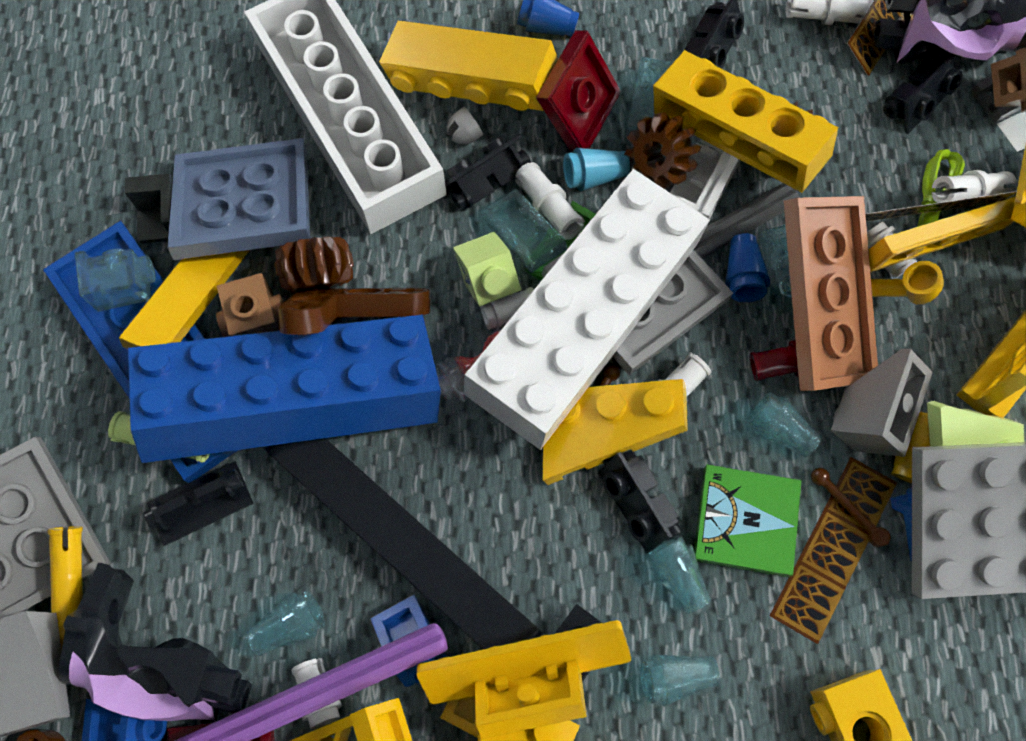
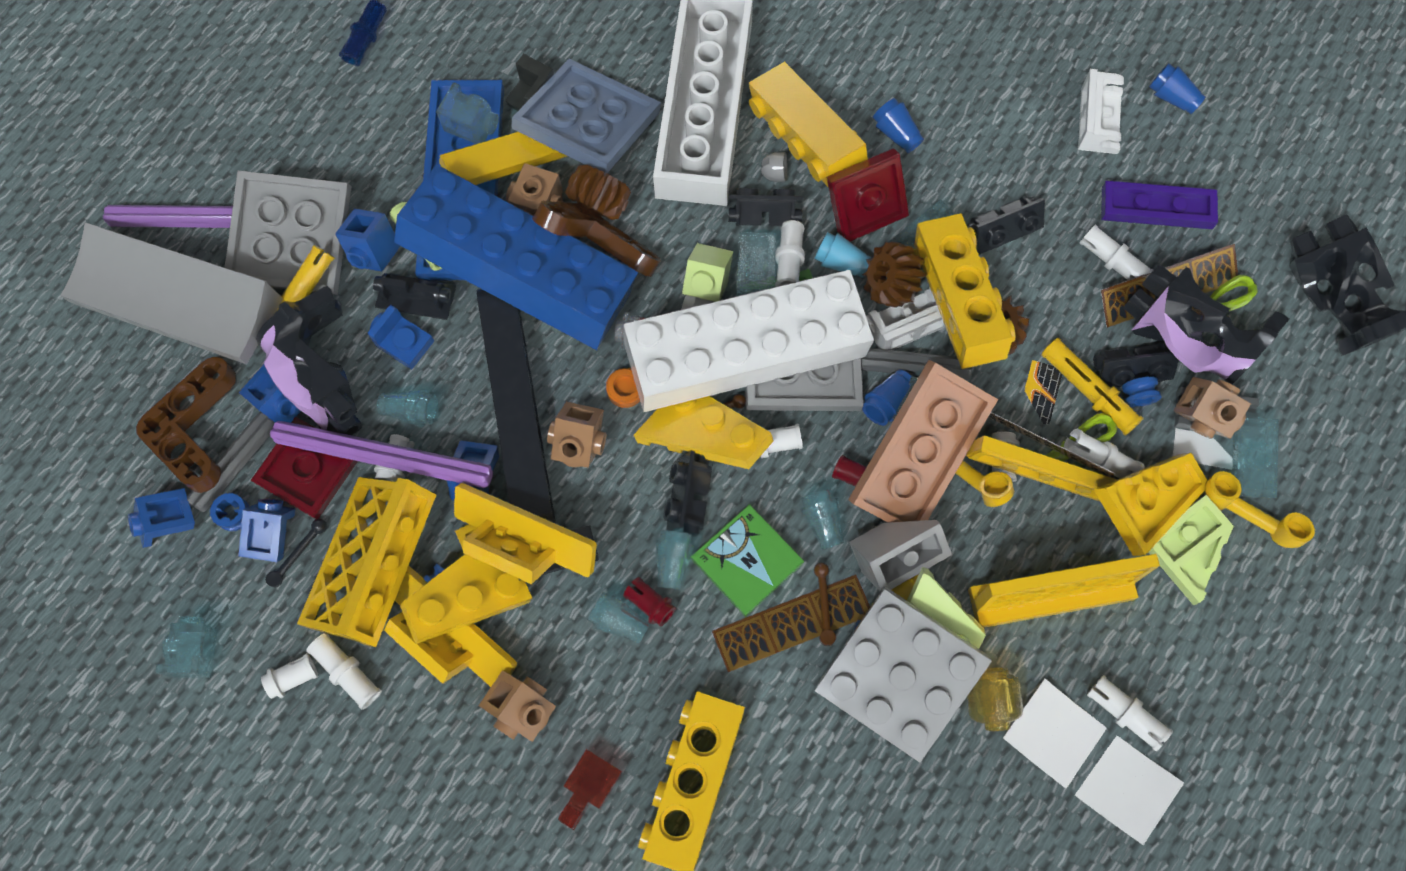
camera: 40 degrees right, 0 degrees up
(103, 481) = (367, 239): none -> blue brick
(217, 558) = (399, 337): none -> blue bracket
(490, 522) = (577, 435): none -> medium nougat brick
(491, 440) = (622, 388): none -> orange tile
(698, 635) = (650, 602): none -> dark red pin
(863, 166) = (1043, 388): none -> sticker
(907, 134) = (1094, 388): none -> yellow pin
(950, 109) = (1141, 391): none -> blue bush

